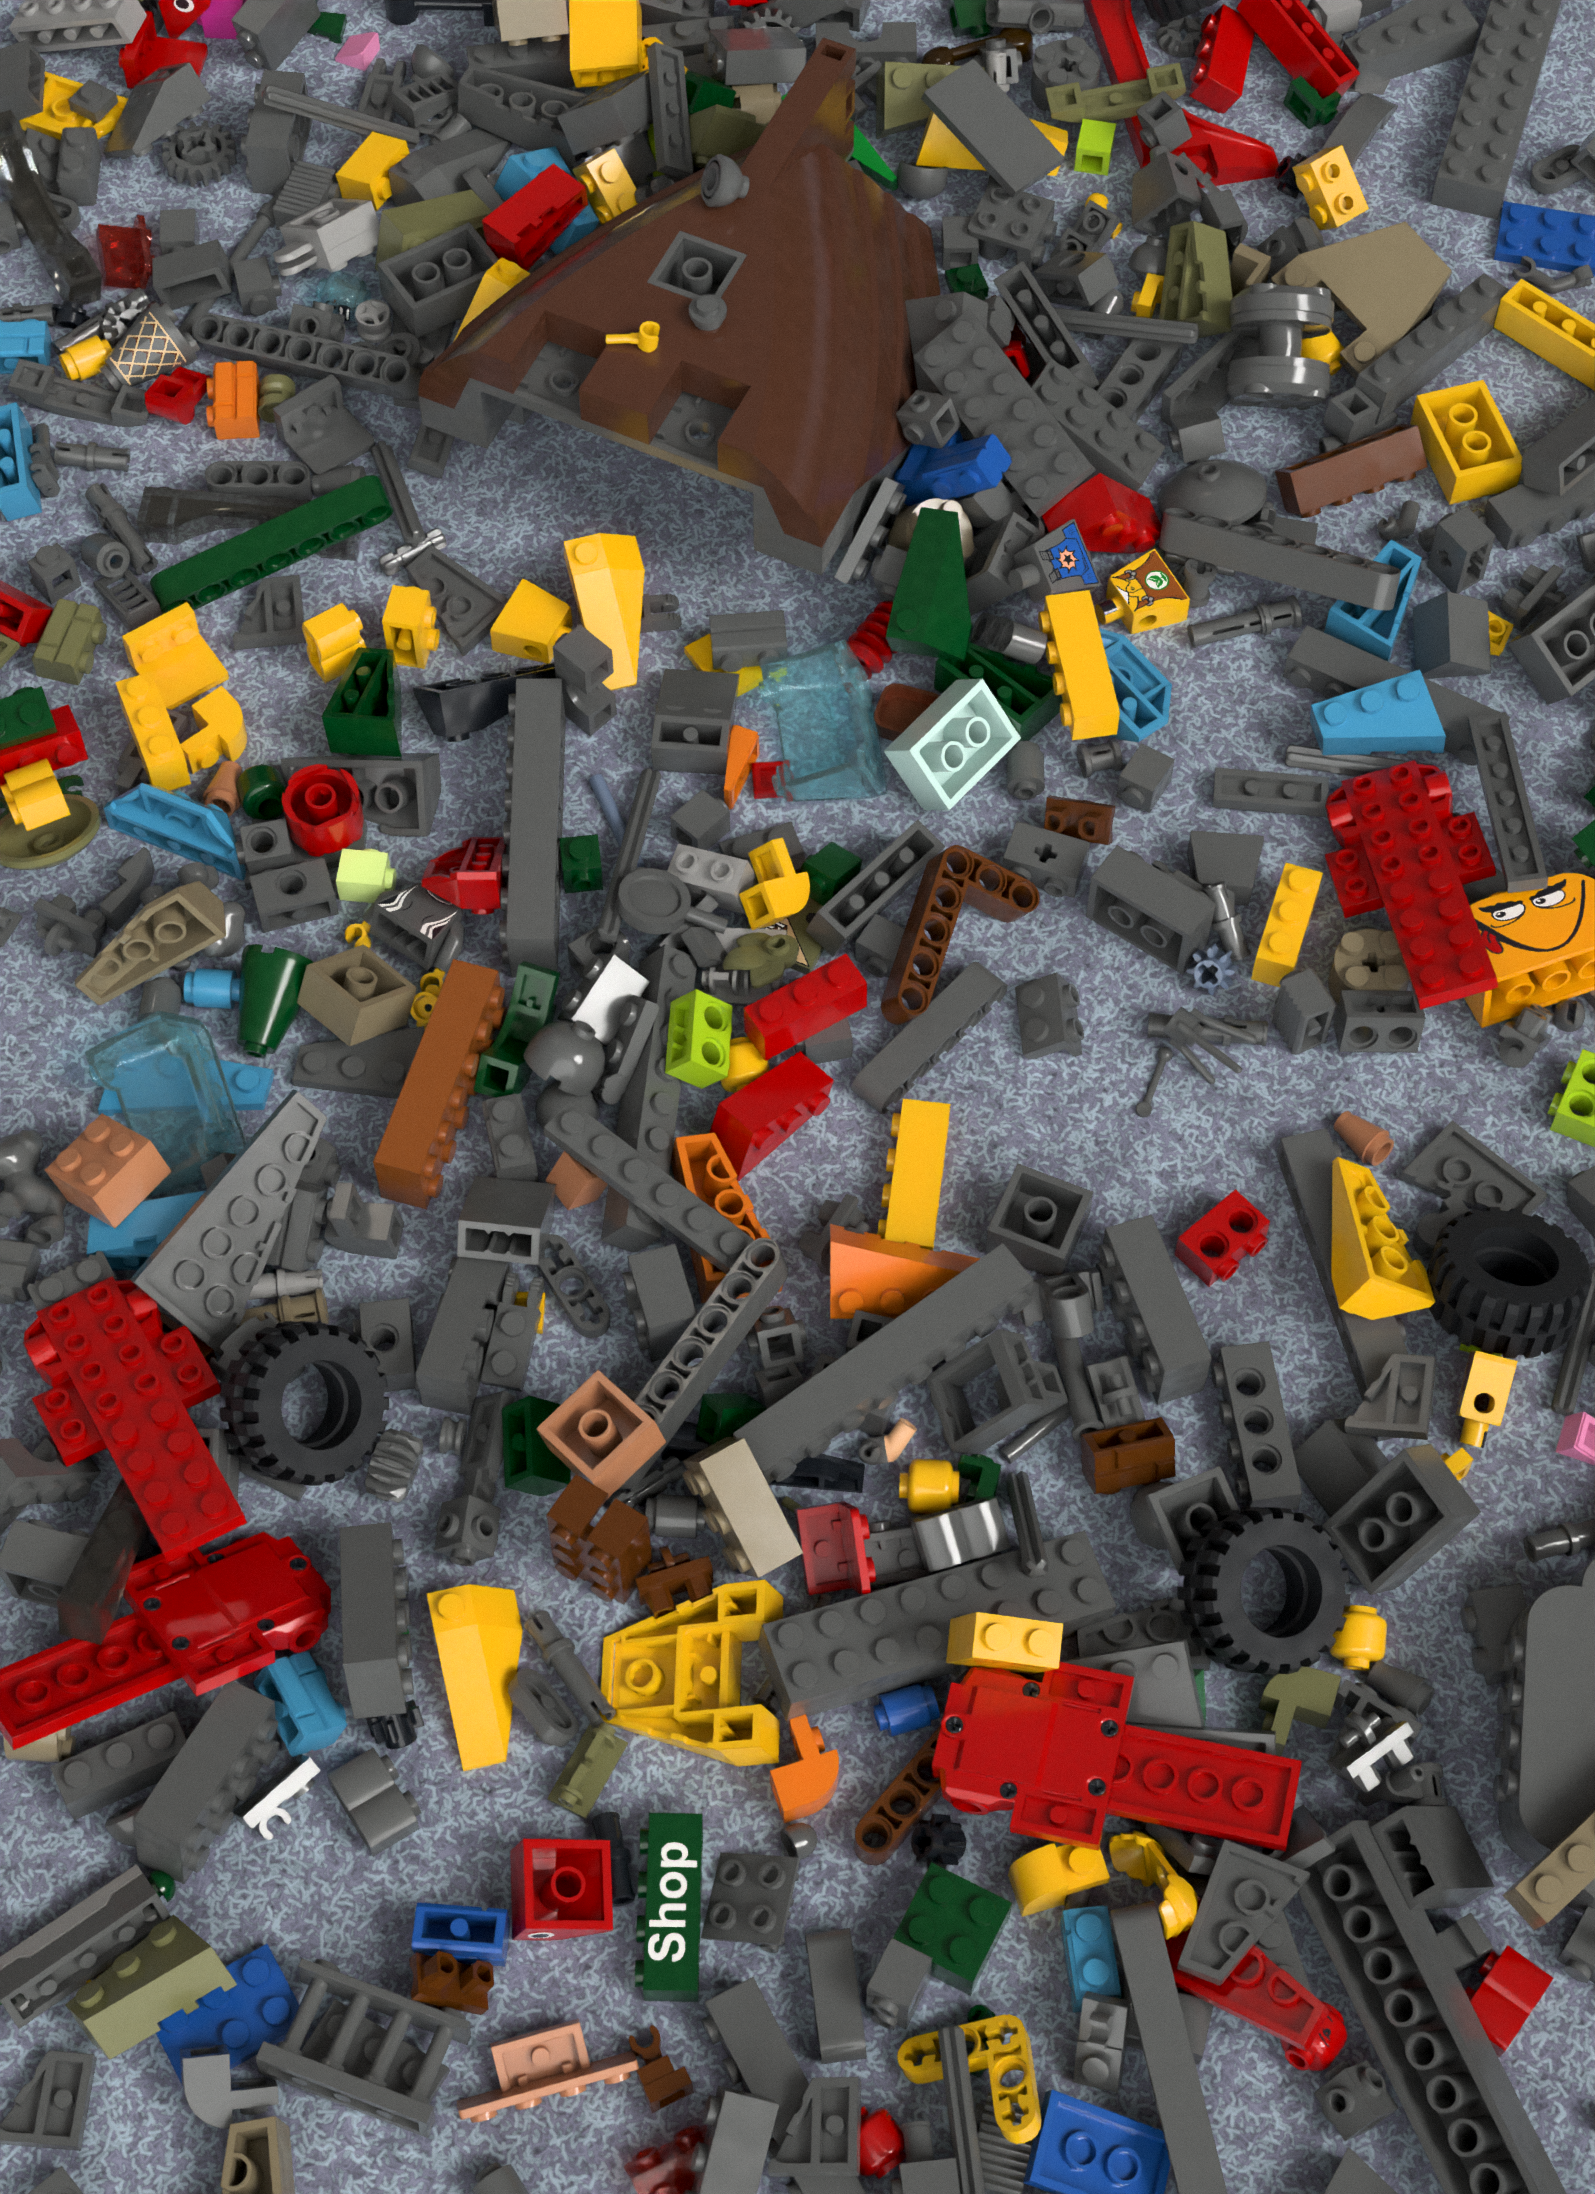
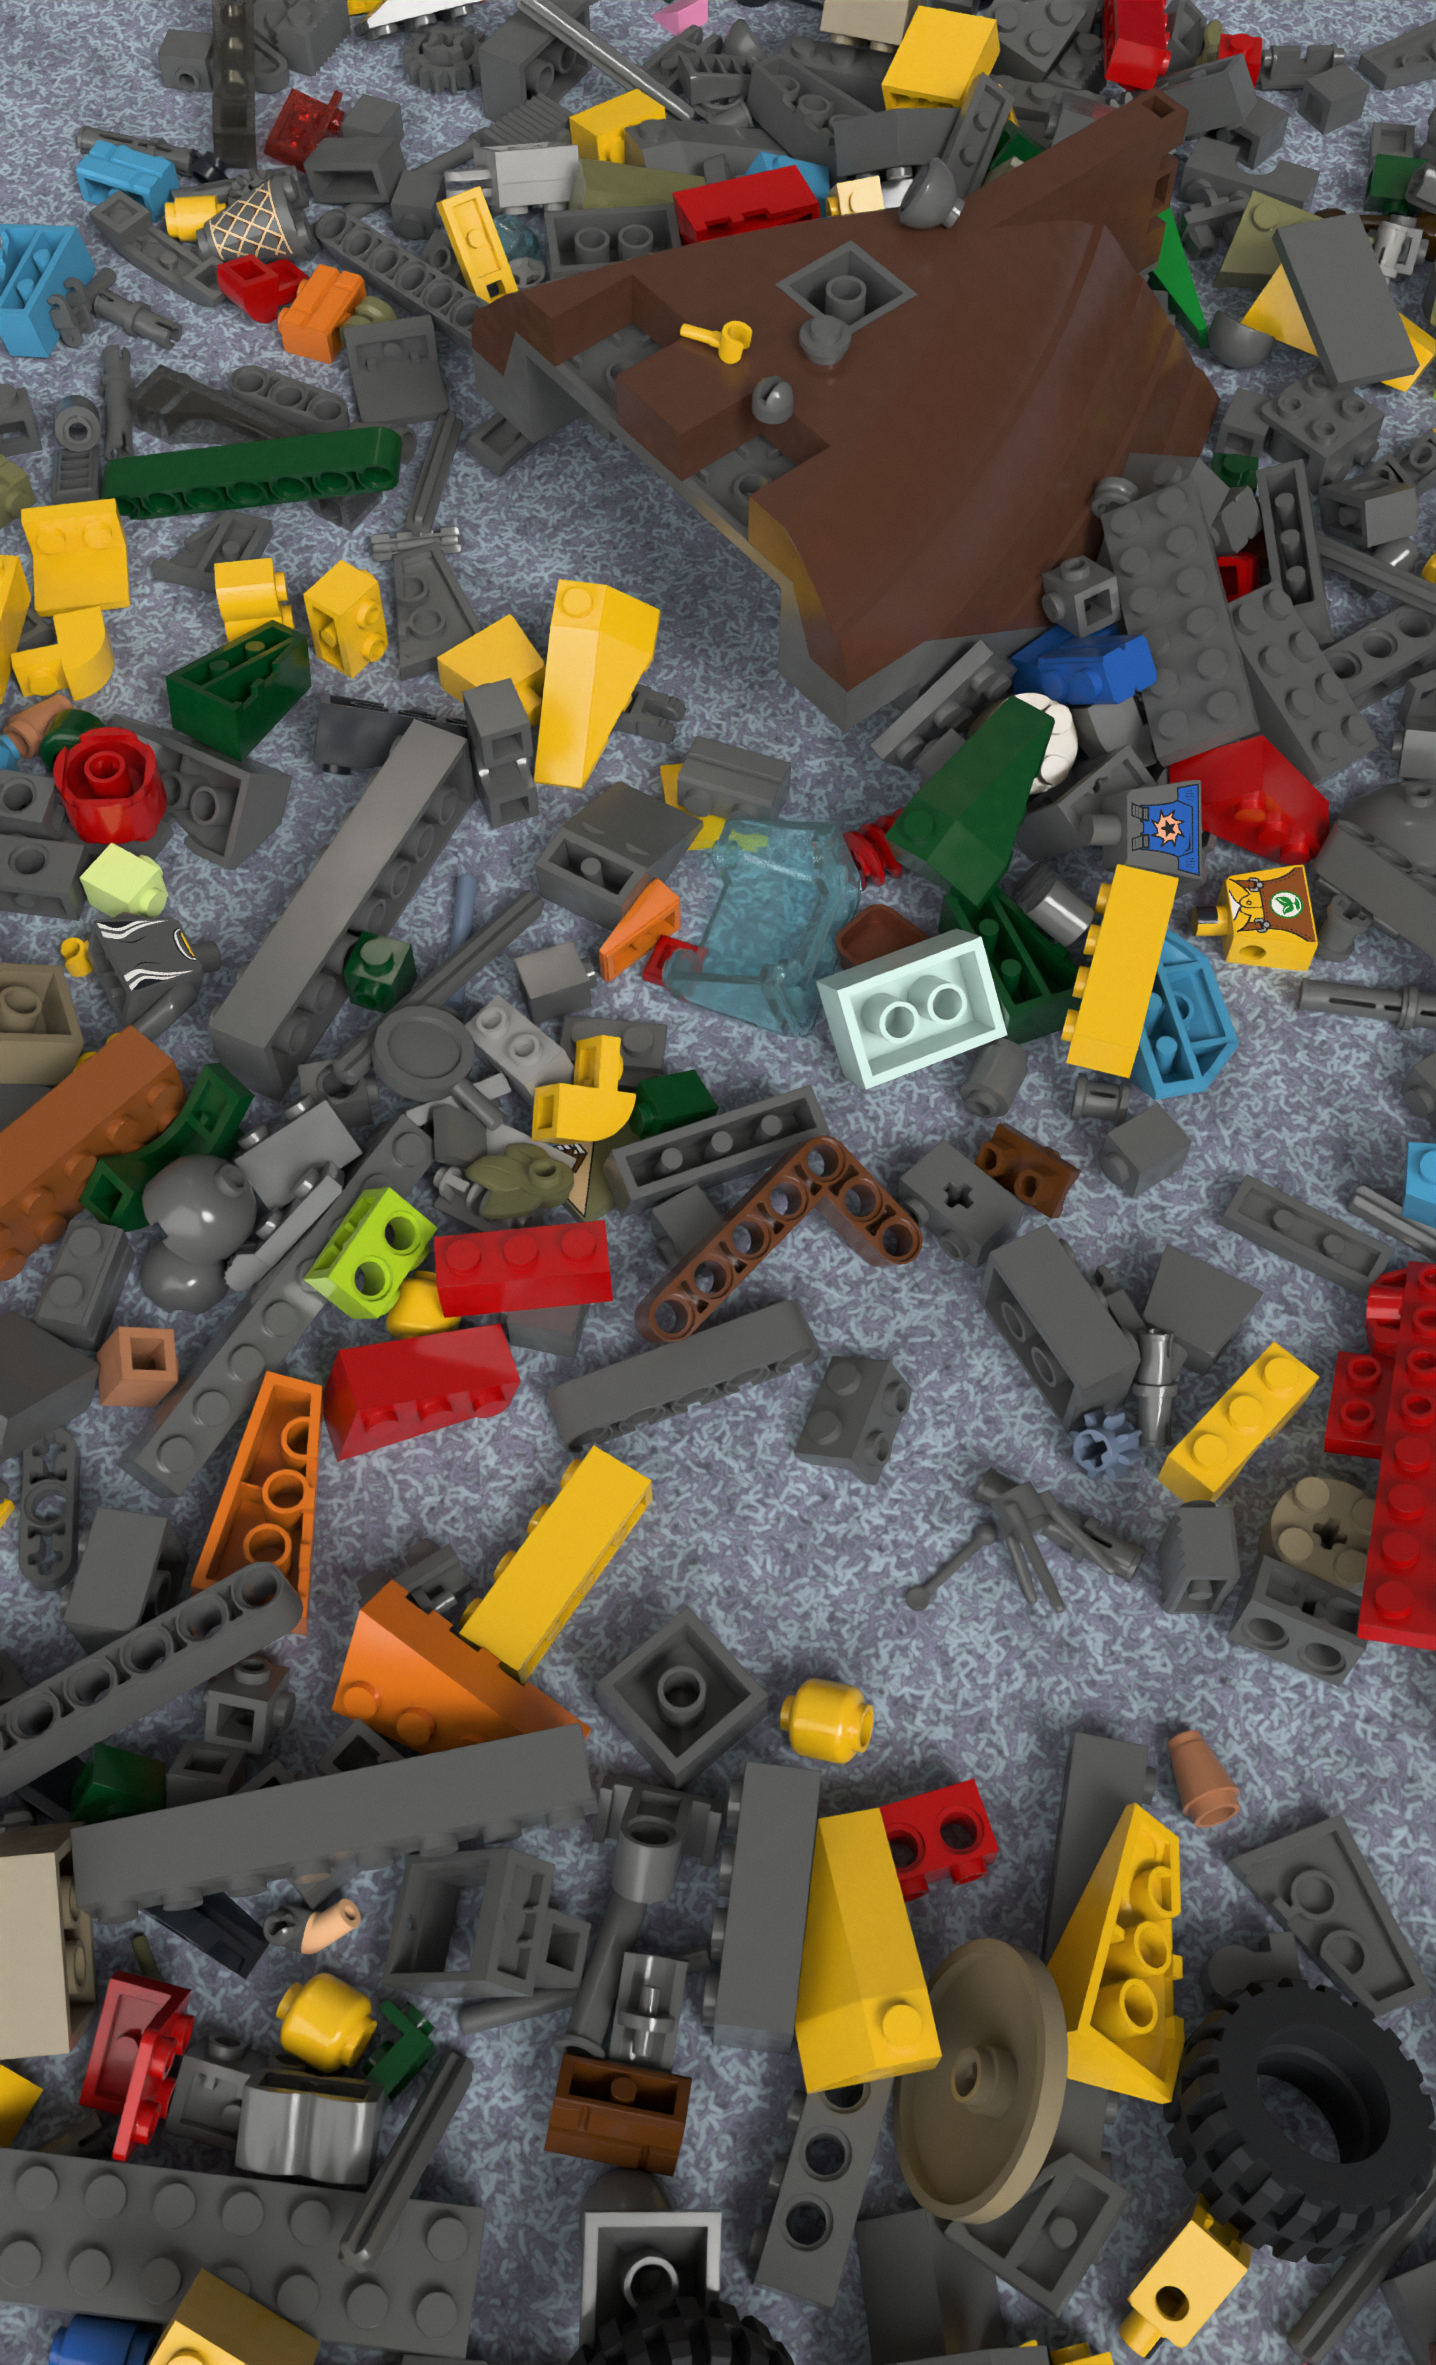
camera: 25 degrees right, 0 degrees up
(341, 308) = (476, 243): none -> yellow plate
(469, 875) = (221, 932): red wedge -> none
(647, 1186) = (185, 1423): dark grey plate -> none
(705, 369) = (779, 401): none -> dark grey hinge
(914, 339) = (1112, 494): none -> dark grey bush
(1129, 1196) = (827, 1721): none -> yellow head
(1235, 1315) = (861, 1978): none -> yellow wedge
(1326, 1335) = (991, 2107): none -> dark tan dish

